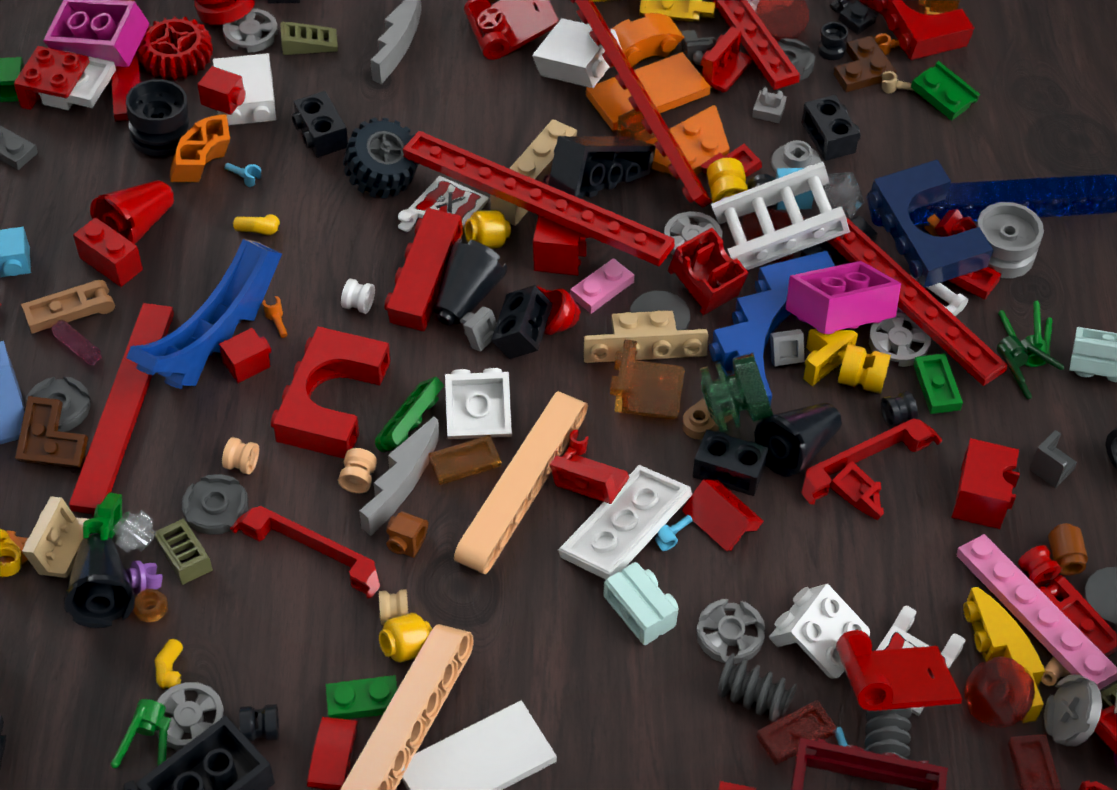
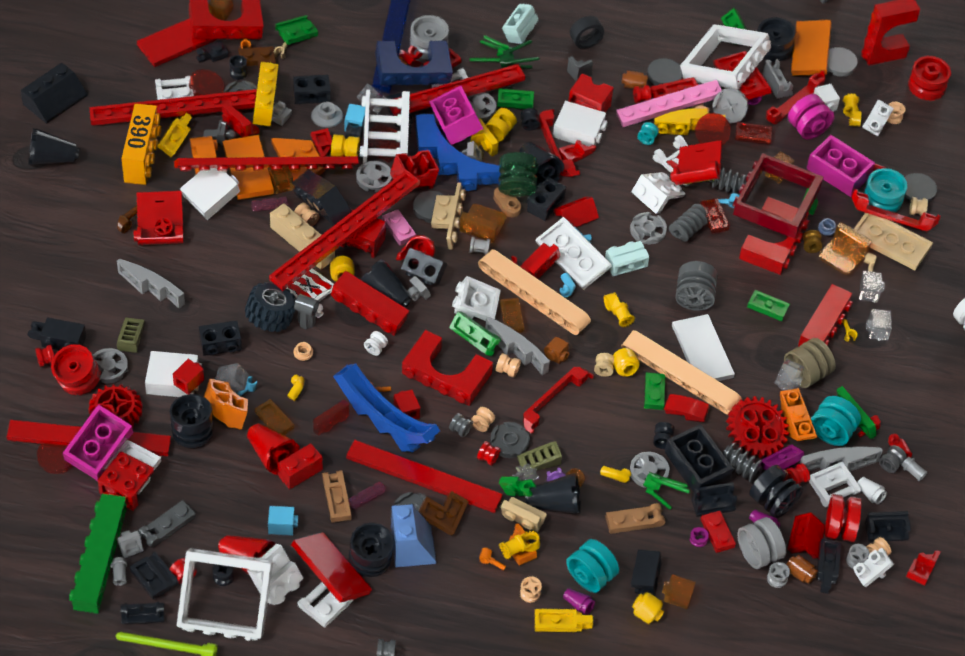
camera: 80 degrees left, 0 degrees up
(80, 709) = (635, 519): none -> medium nougat plate
(175, 475) = (488, 453): none -> red wheel
(193, 211) = (274, 417): none -> clear orange plate
(200, 267) = (332, 416): none -> clear red plate
(223, 428) = (461, 425): none -> dark grey wheel
(247, 146) = (234, 375): none -> clear brick
(324, 219) = (303, 347): none -> light nougat plate
(385, 197) = (306, 310): none -> dark grey piece
(529, 602) = (619, 309): none -> yellow connector
(554, 531) = (568, 287): none -> medium azure arm
(586, 122) = (267, 204): none -> clear pink axle
(595, 387) = (479, 245): none -> light grey bush
(599, 716) = (696, 285): none -> dark grey wheel
(755, 70) = (265, 94): none -> yellow arch
(919, 482) = (580, 124): none -> white brick
(948, 590) = (648, 133): none -> teal wheel

